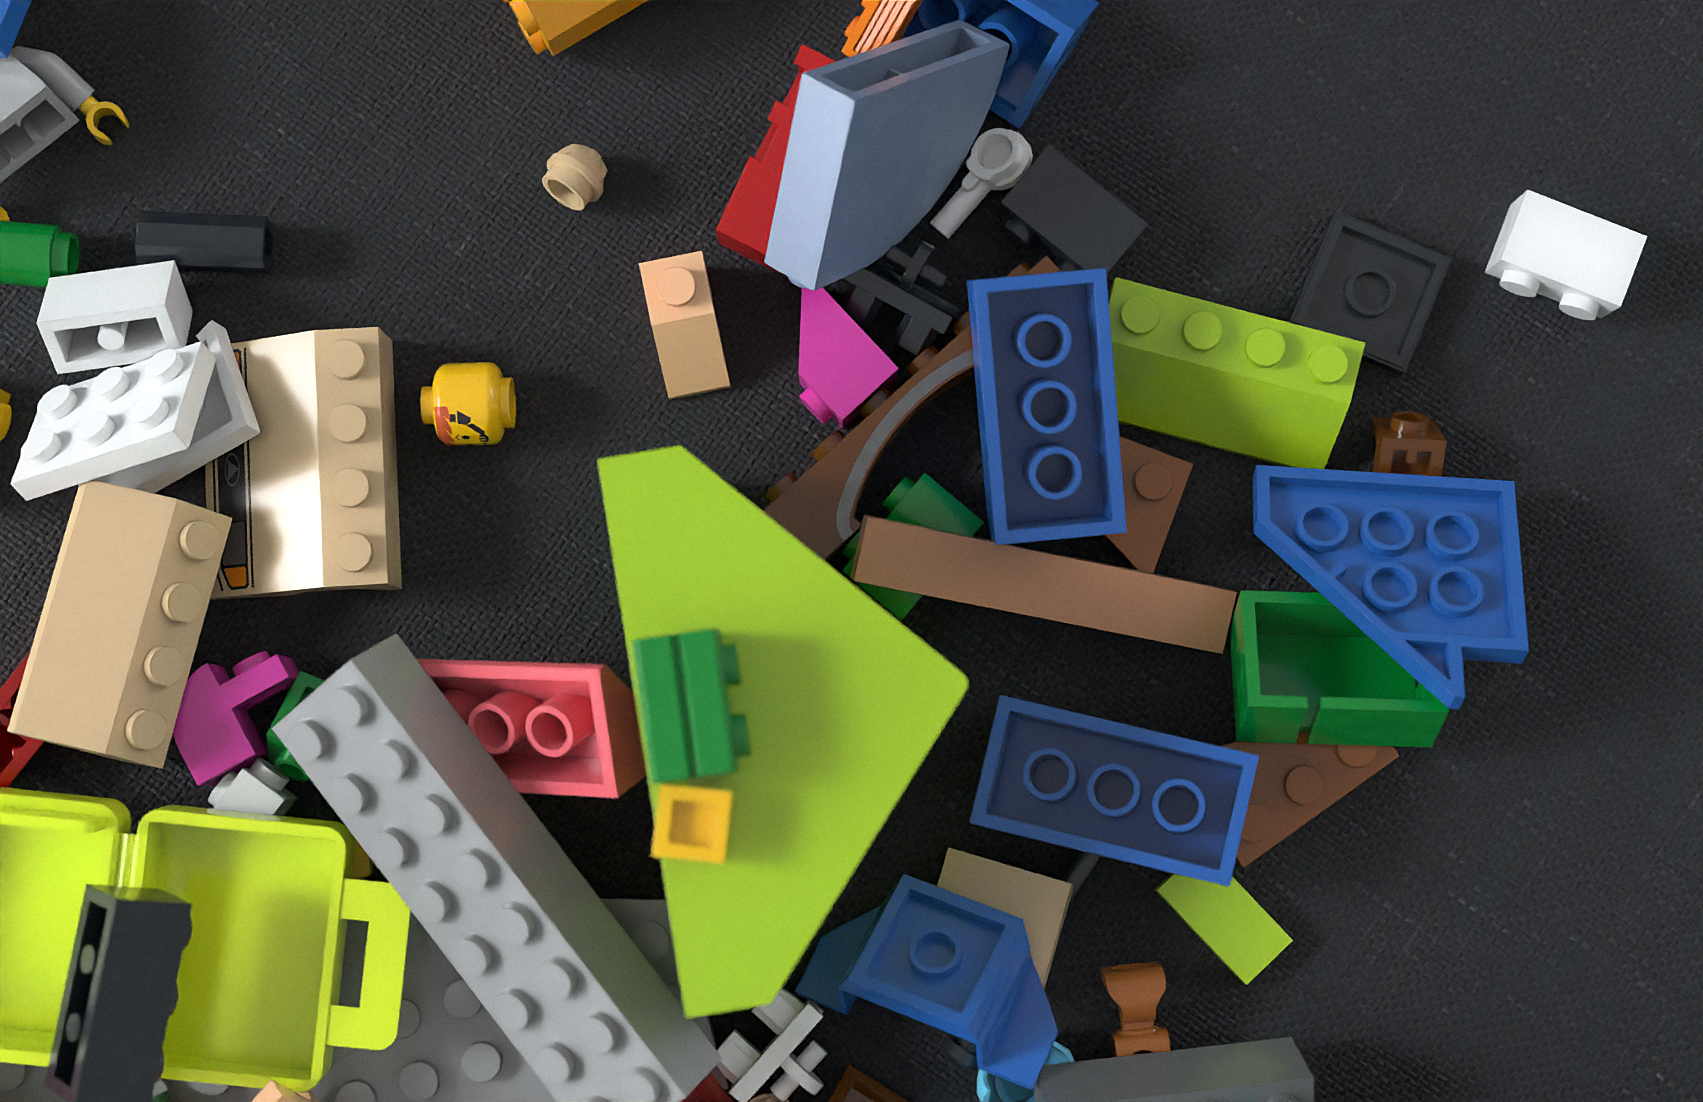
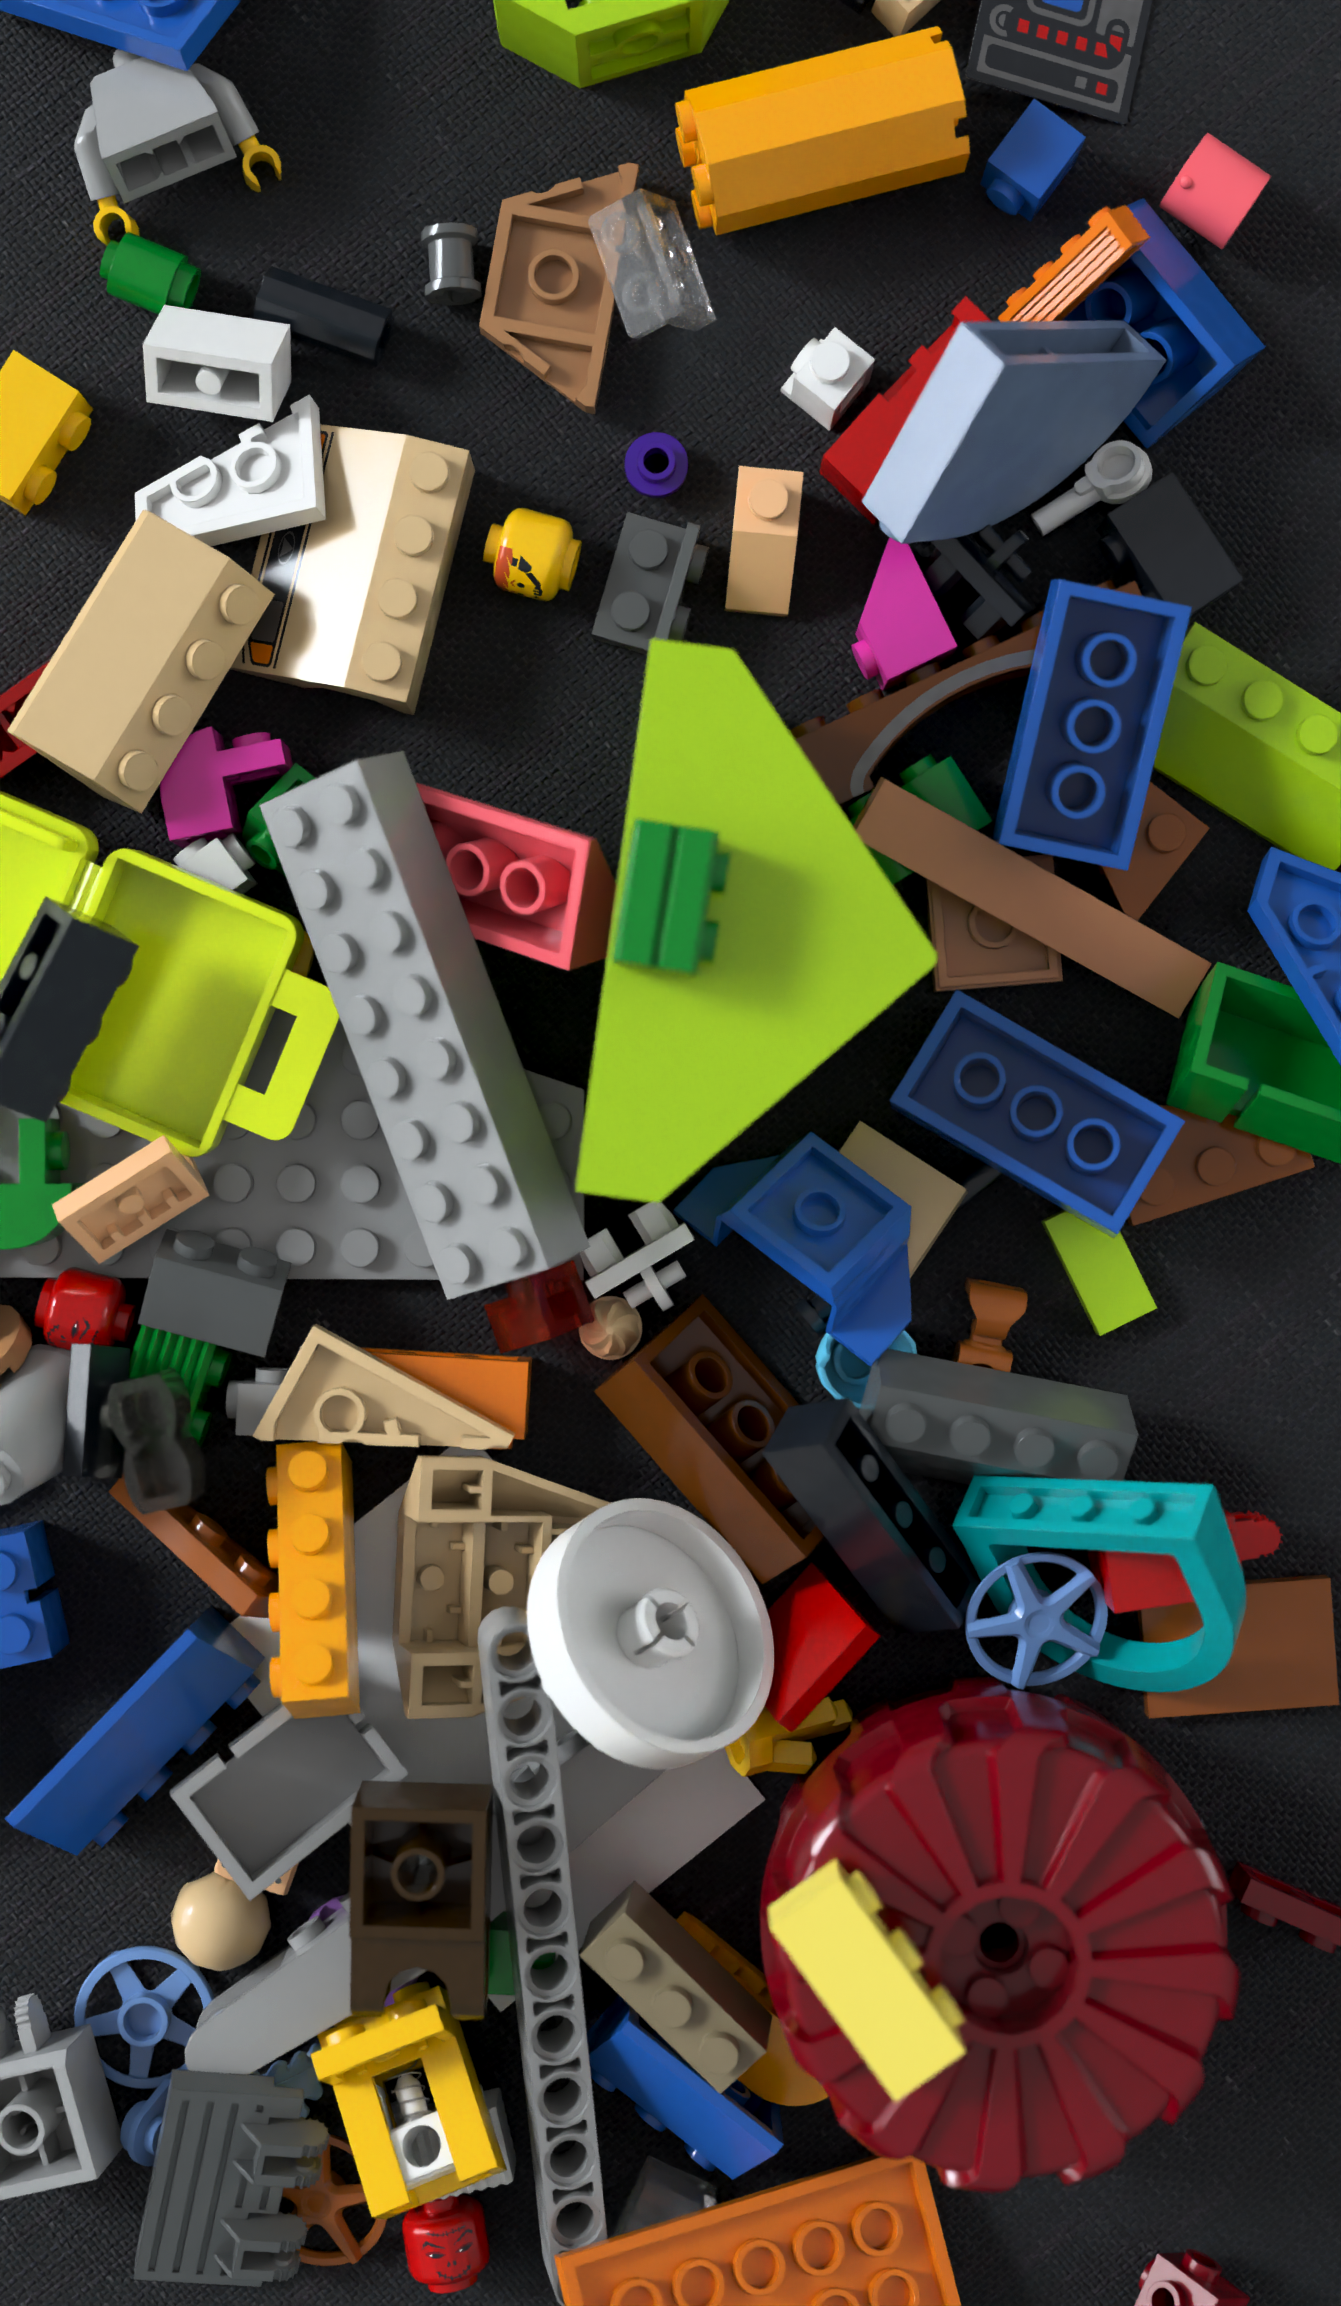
camera: 20 degrees right, 5 degrees up
(114, 421) = (190, 463): white plate -> none
(311, 157) = (451, 263): none -> dark grey bush
(419, 140) = (548, 285): none -> medium nougat wing
(500, 101) = (650, 264): none -> clear bracket
(562, 303) = (656, 484): none -> dark purple plate
(575, 176) = (701, 362): tan plate -> none
(589, 398) = (649, 583): none -> dark grey bracket
(692, 823) = (638, 1010): yellow plate -> none
(699, 154) = (828, 377): none -> white brick
(1013, 647) = (980, 948): none -> nougat tile

